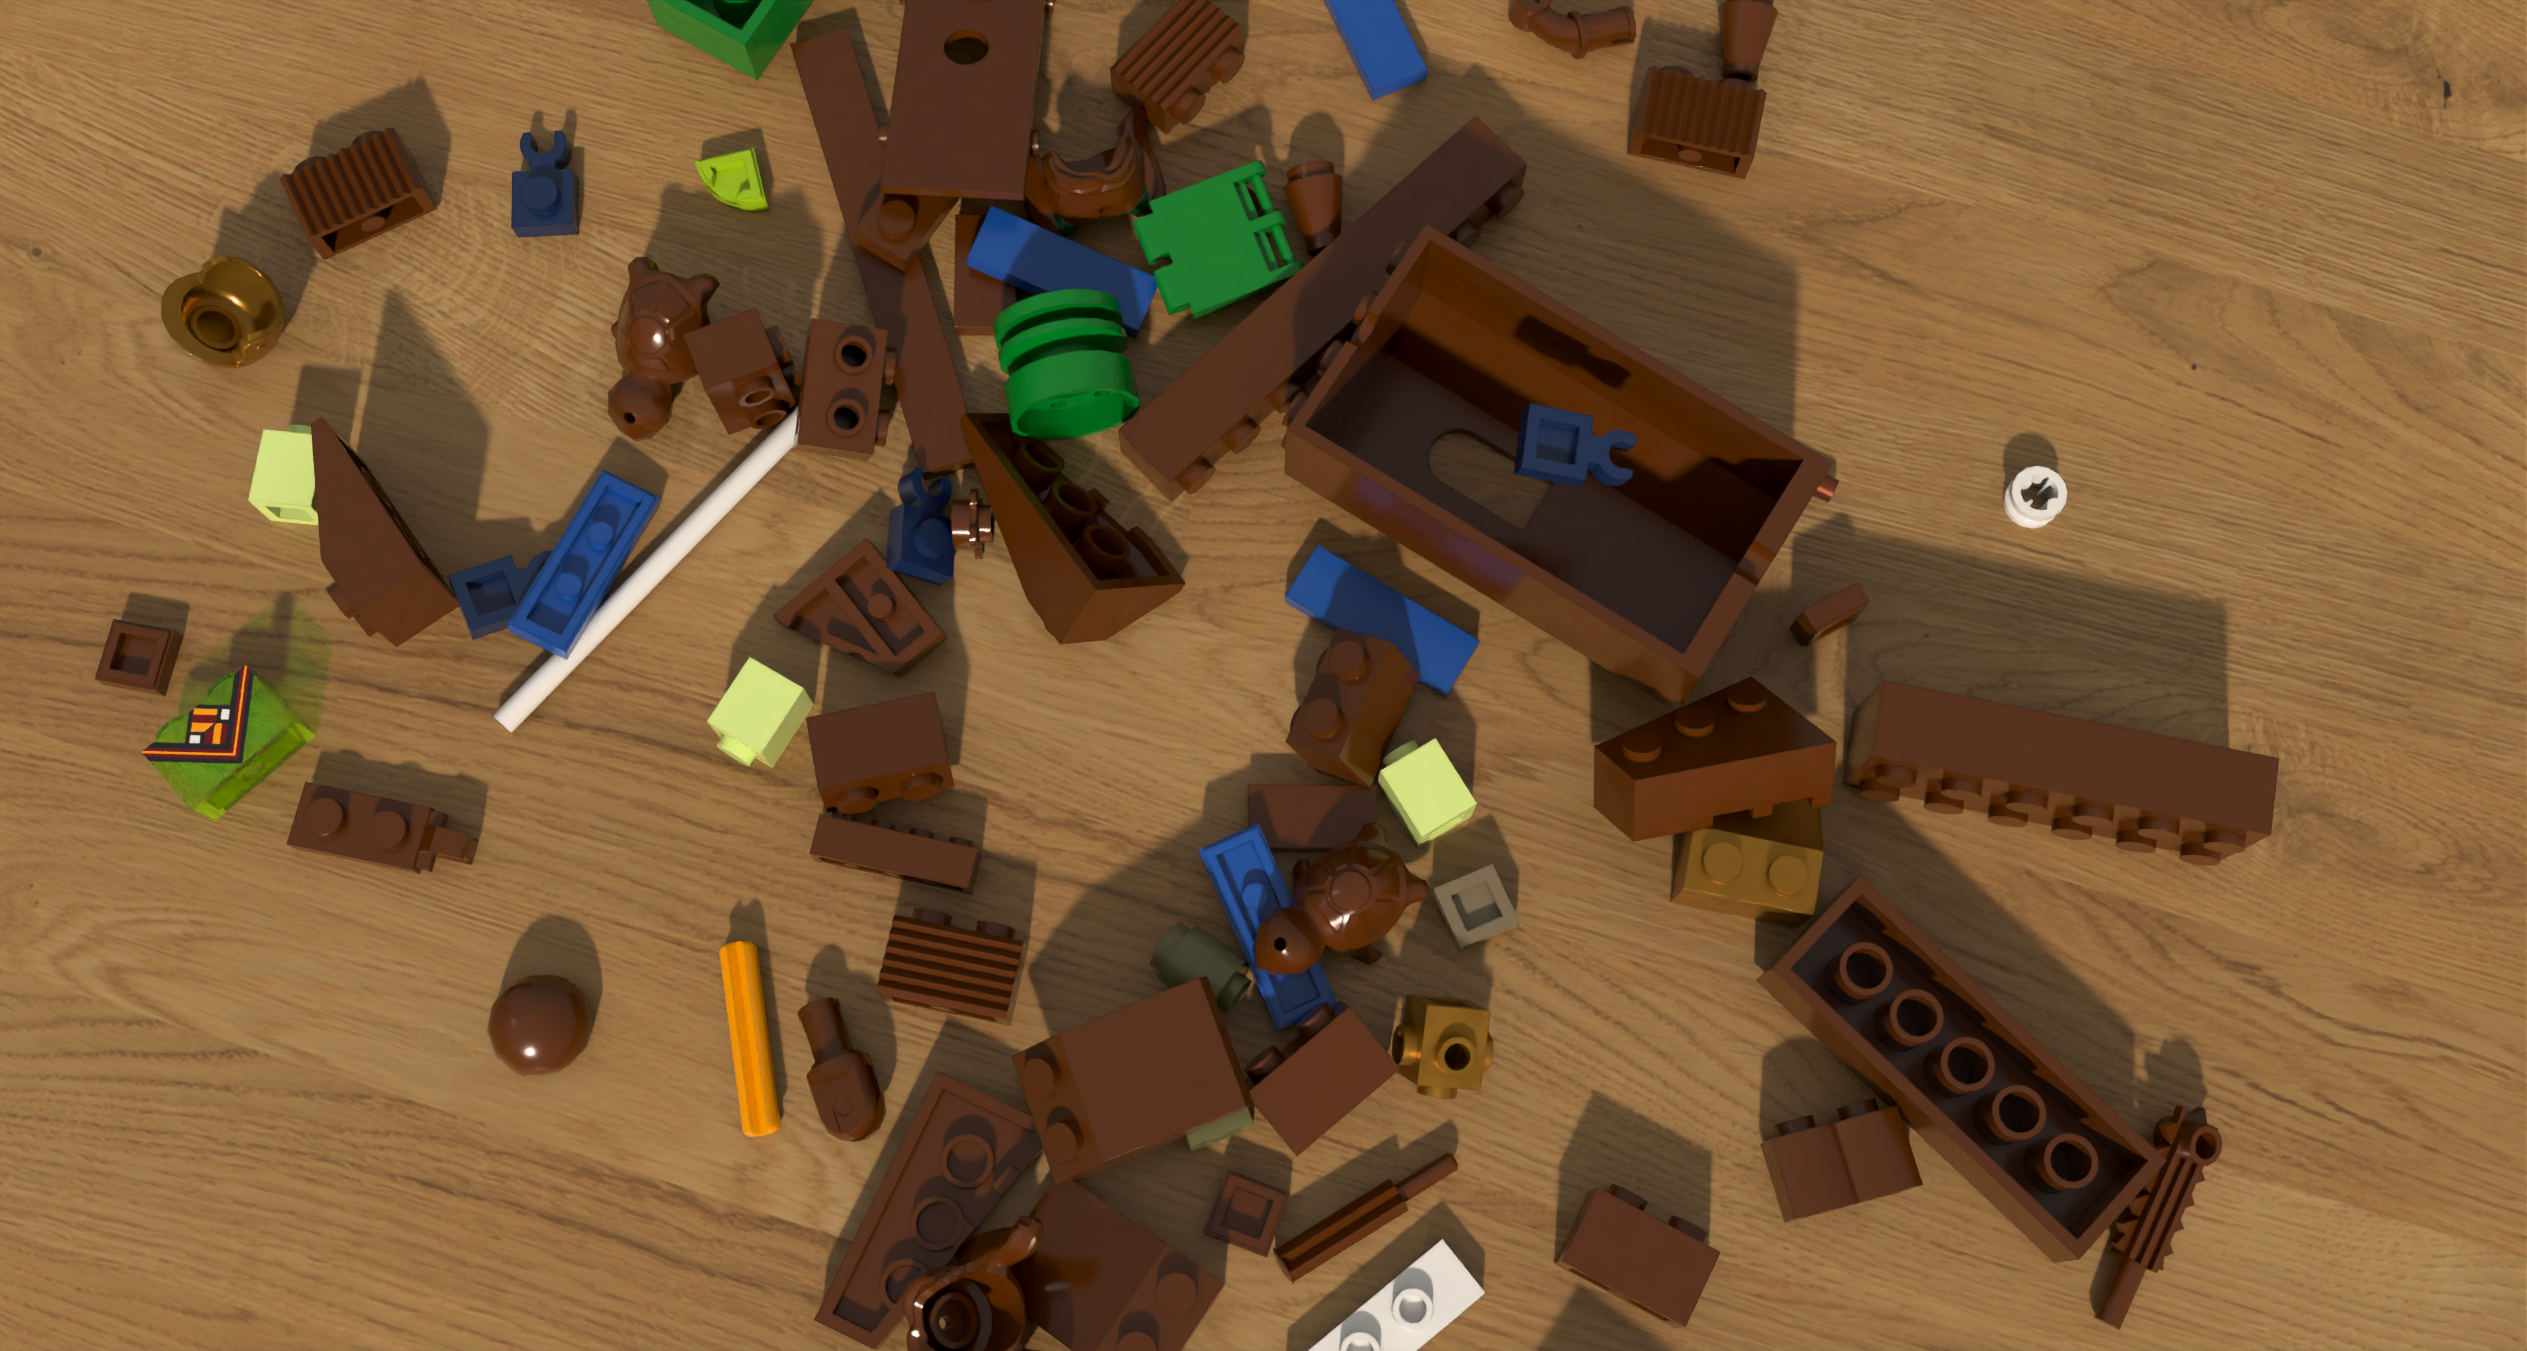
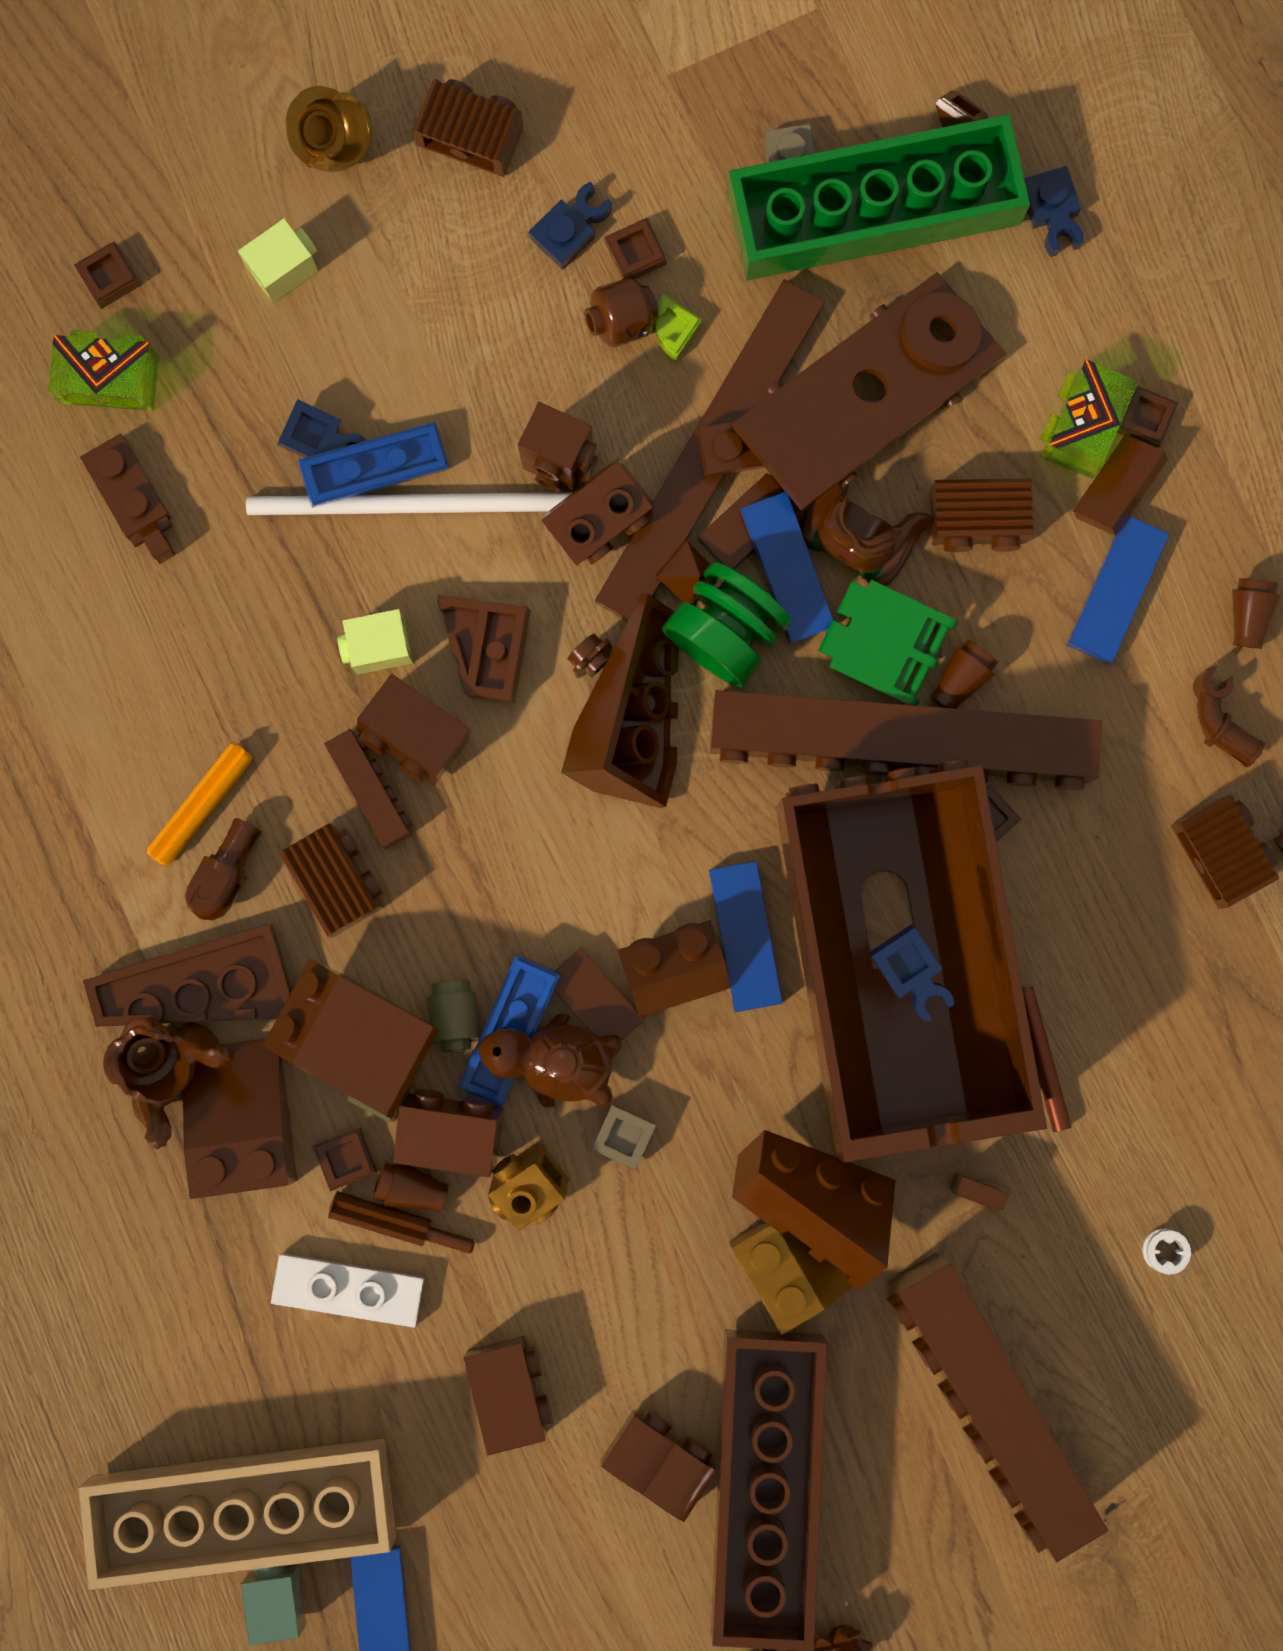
camera: 50 degrees right, 10 degrees up
(369, 549) = (274, 340): reddish brown slope -> none
(539, 1024) = (107, 685): reddish brown hair -> none
(628, 151) = (635, 250): none -> reddish brown tile
(652, 344) = (539, 372): reddish brown animal -> none
(674, 209) = (621, 312): none -> reddish brown head
(918, 534) = (558, 631): dark blue plate -> none
(975, 369) = (683, 571): none -> reddish brown slope
(1333, 1171) = (409, 1188): none -> reddish brown cone
(1424, 791) = (664, 1050): yellowish green brick -> none

